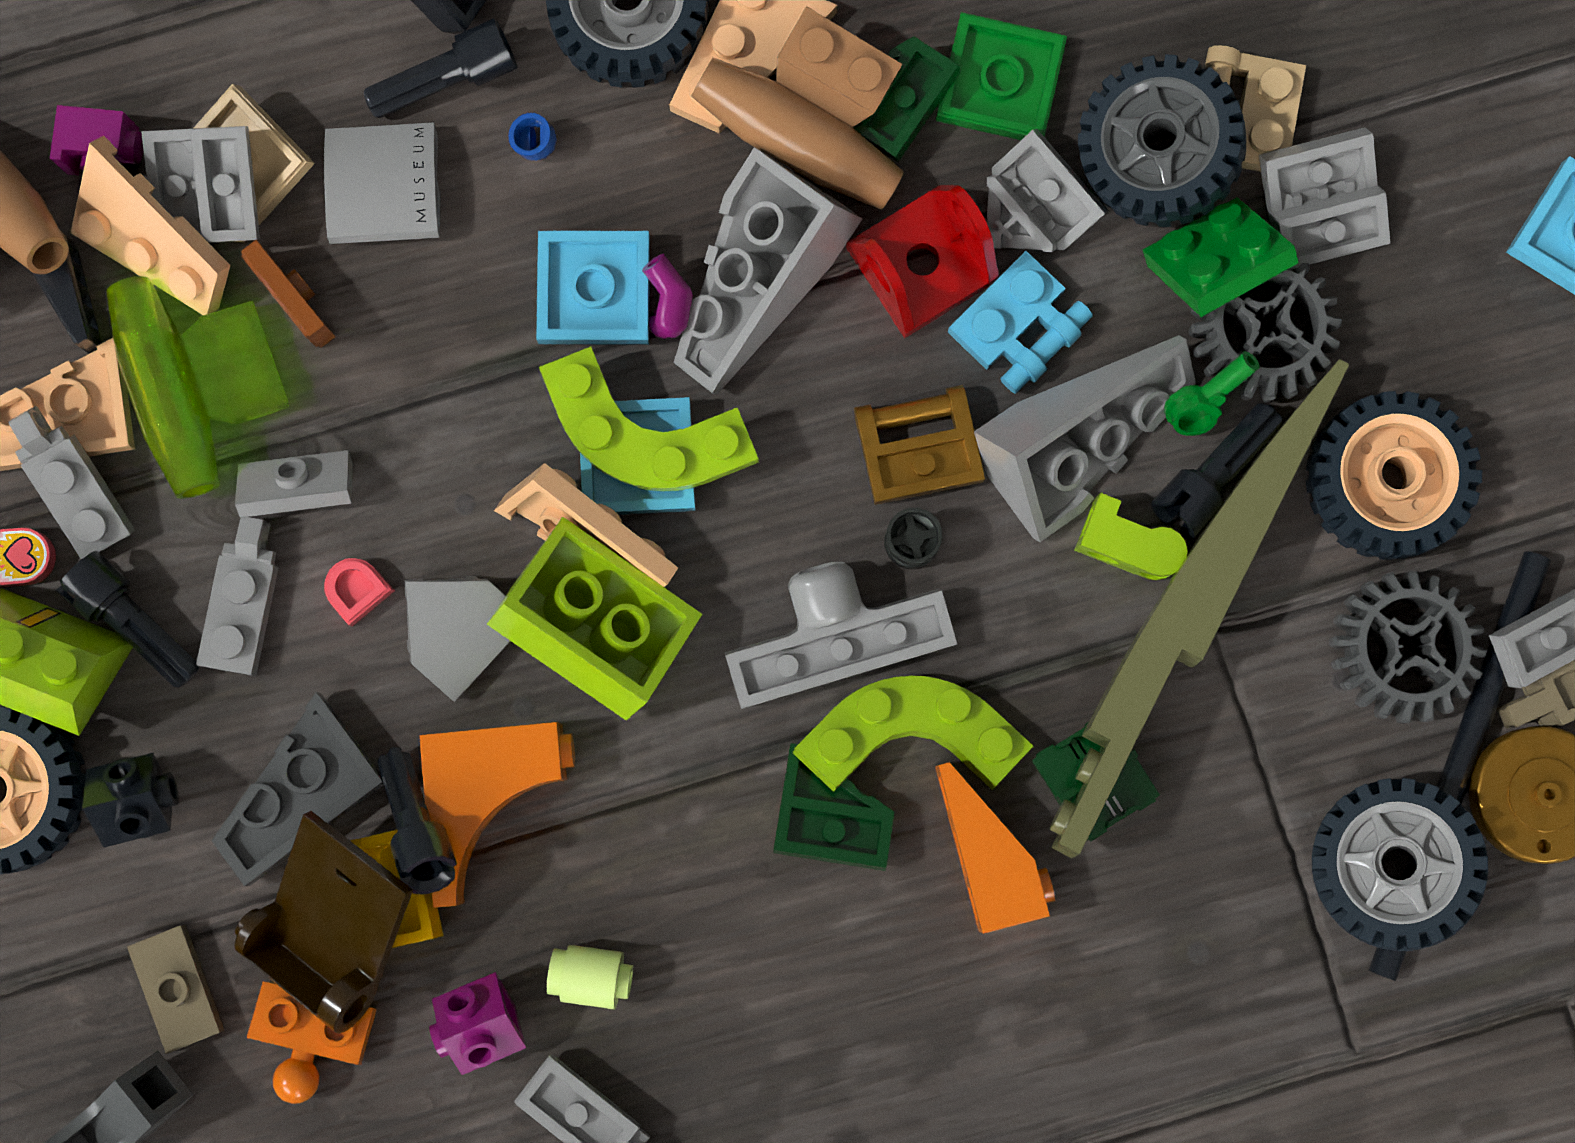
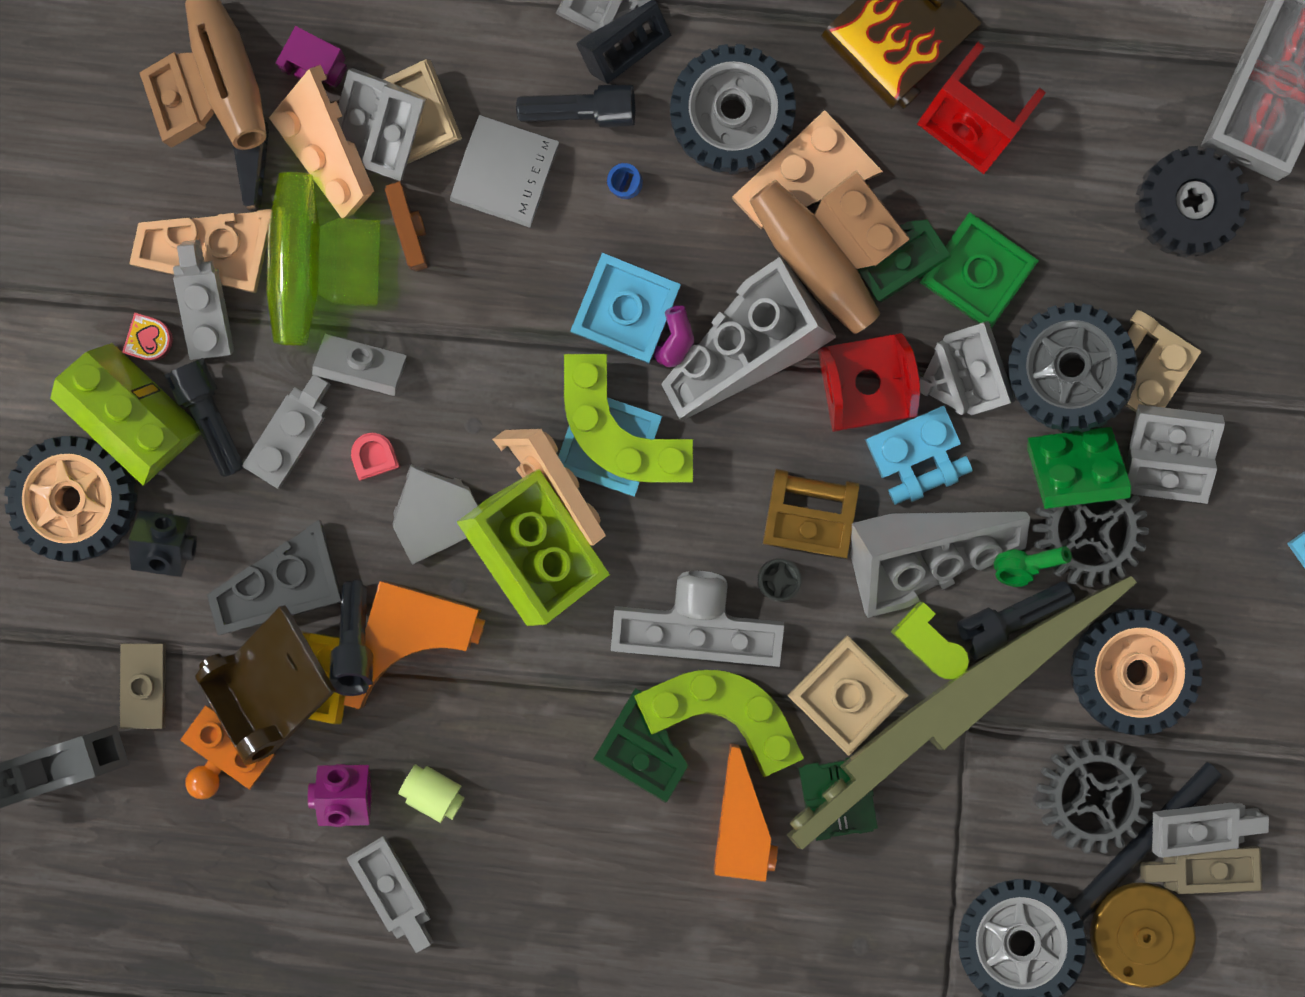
camera: 20 degrees right, 5 degrees up
(1055, 646) = (847, 695): none -> tan plate

